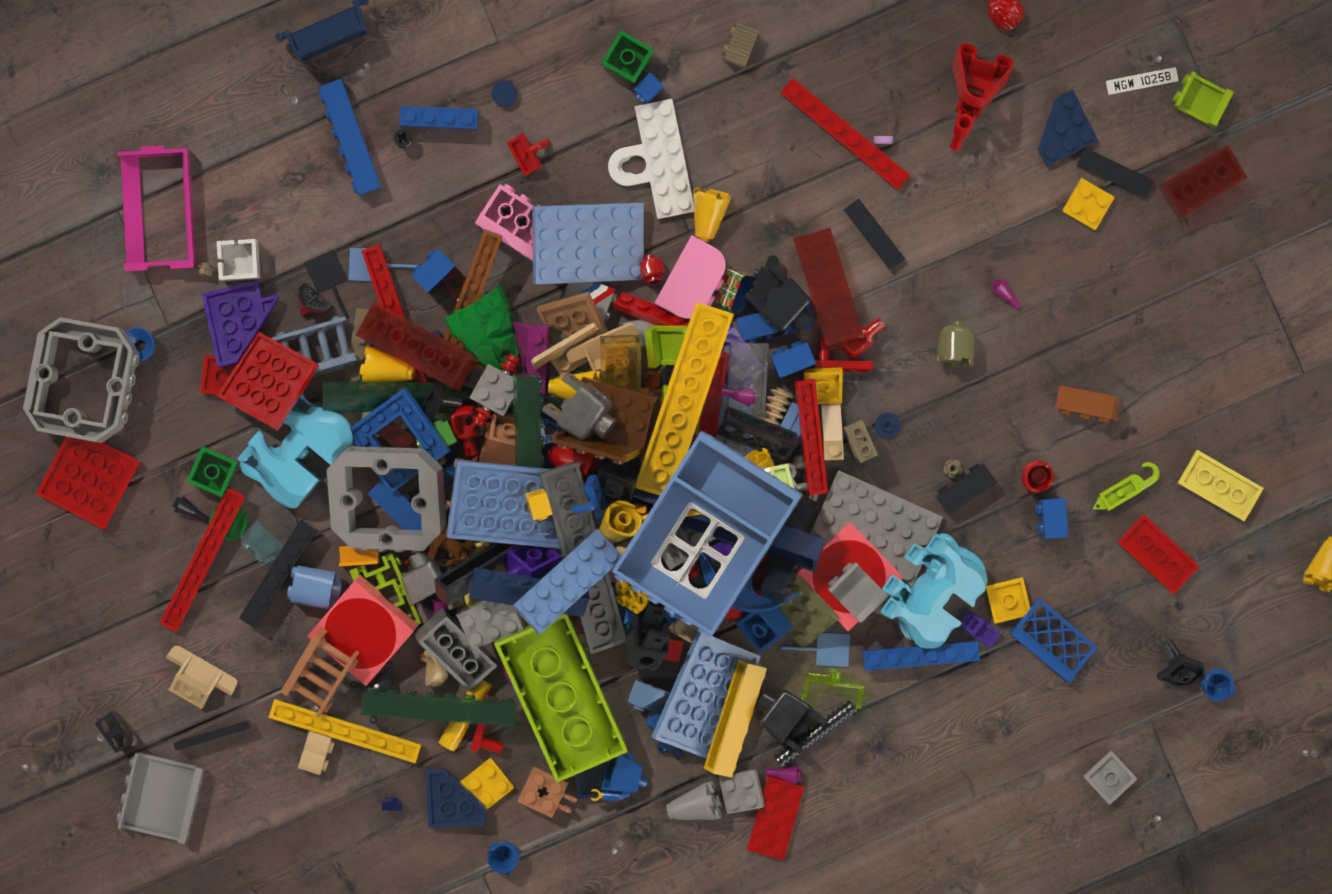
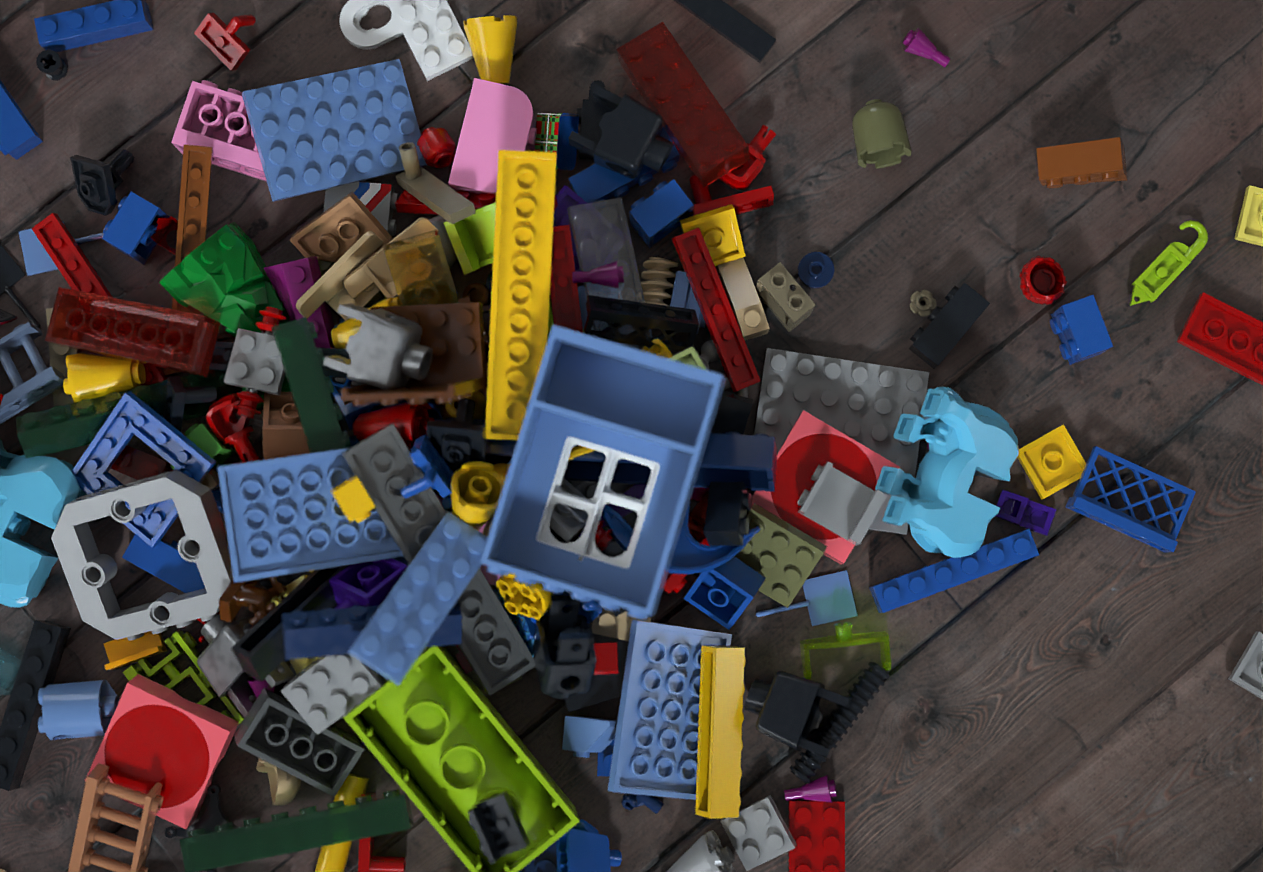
camera: 15 degrees left, 5 degrees down
(414, 231) = (98, 180): none -> black piece
(574, 740) = (497, 826): none -> black bracket
(641, 303) = (430, 189): none -> dark tan piece

